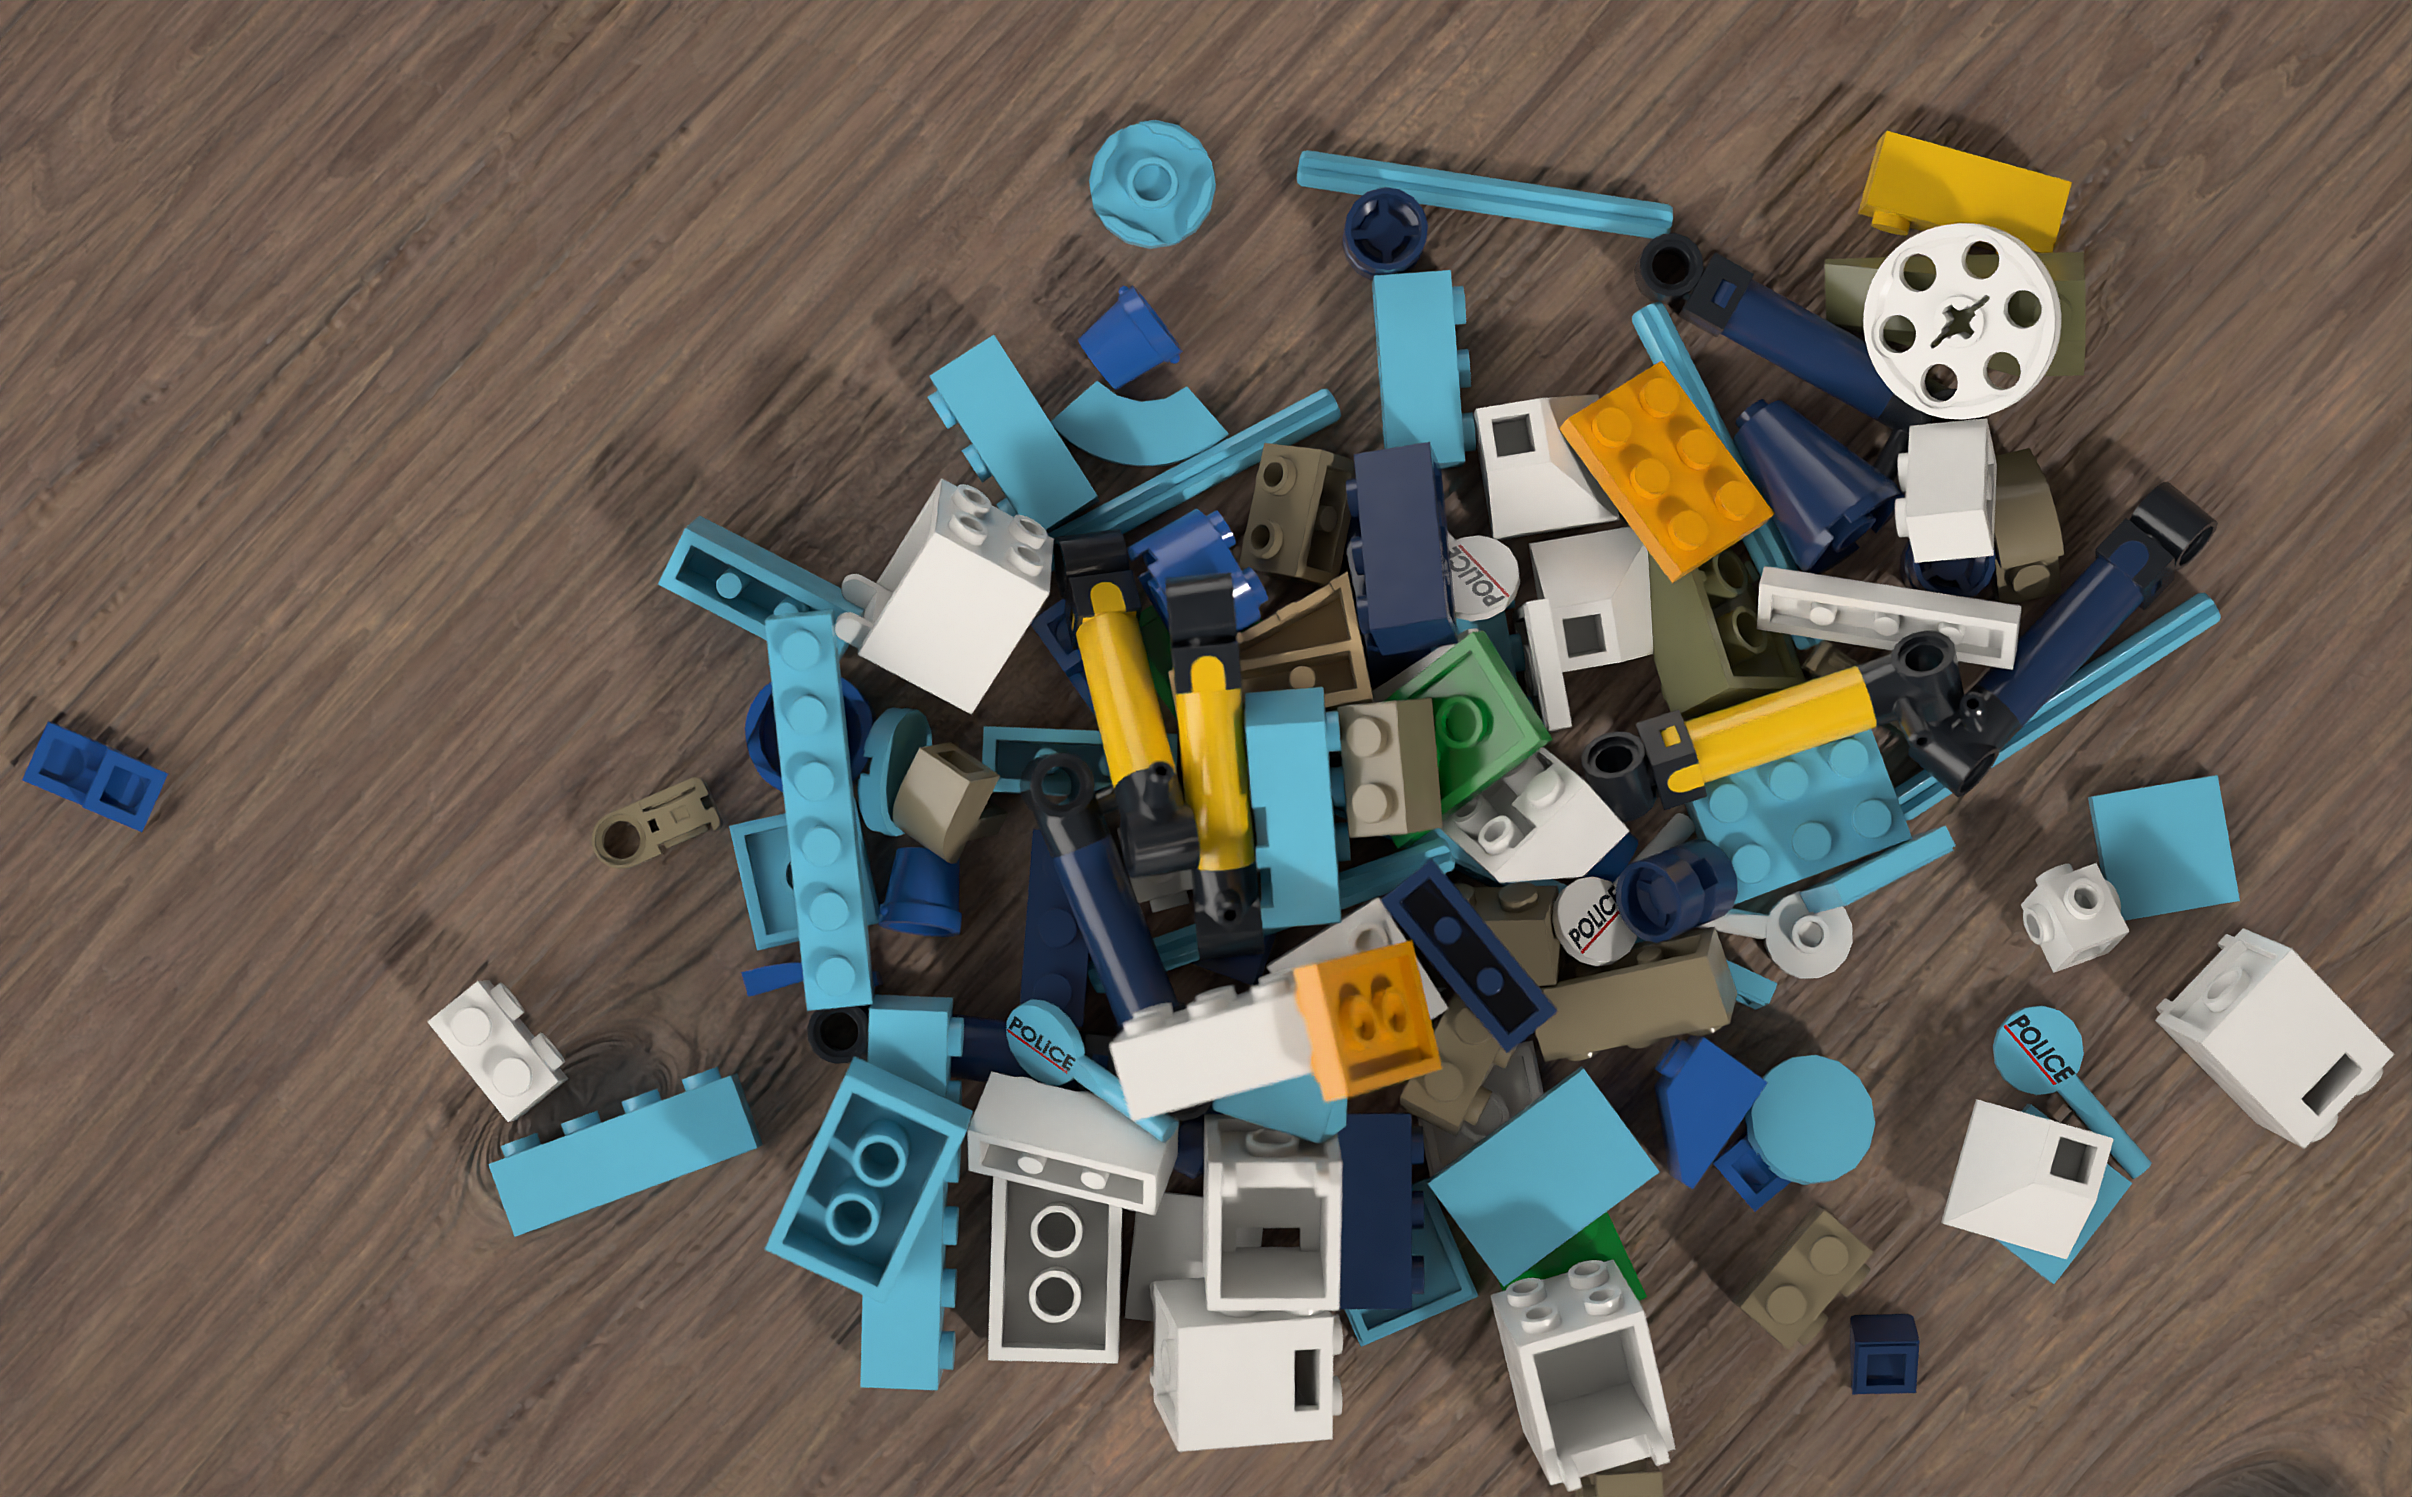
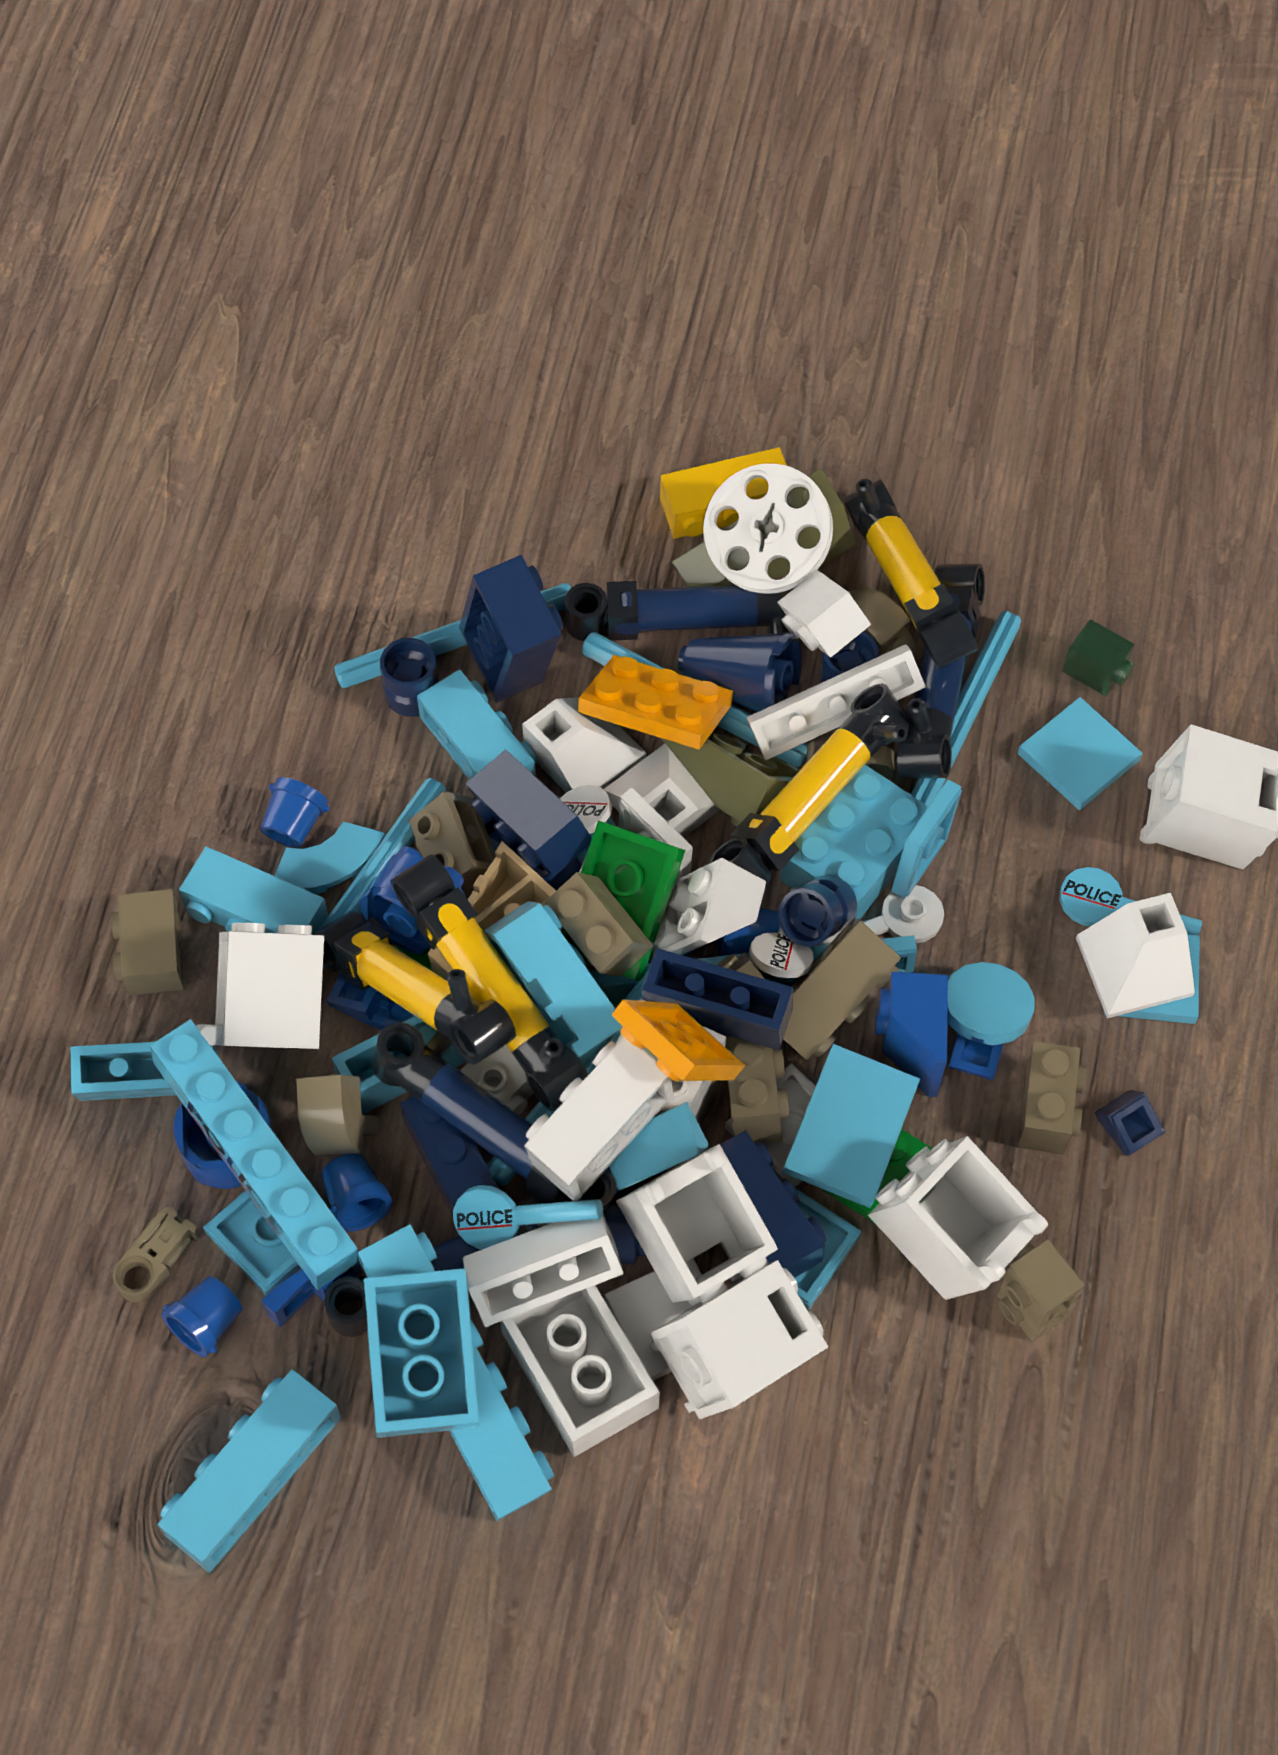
camera: 30 degrees left, 25 degrees down
(499, 1049) = (125, 1451): white brick -> none
(670, 940) = (202, 1315): none -> blue piece
(857, 419) = (148, 942): none -> dark tan brick
(892, 747) = (282, 1101): medium azure tile -> none
(1152, 184) = (255, 732): medium azure tile -> none
(1530, 286) = (510, 627): none -> dark blue brick
(2073, 915) = (1057, 807): white brick -> none
(2094, 559) = (911, 576): none -> piece
(2279, 739) = (1099, 658): none -> clear green brick

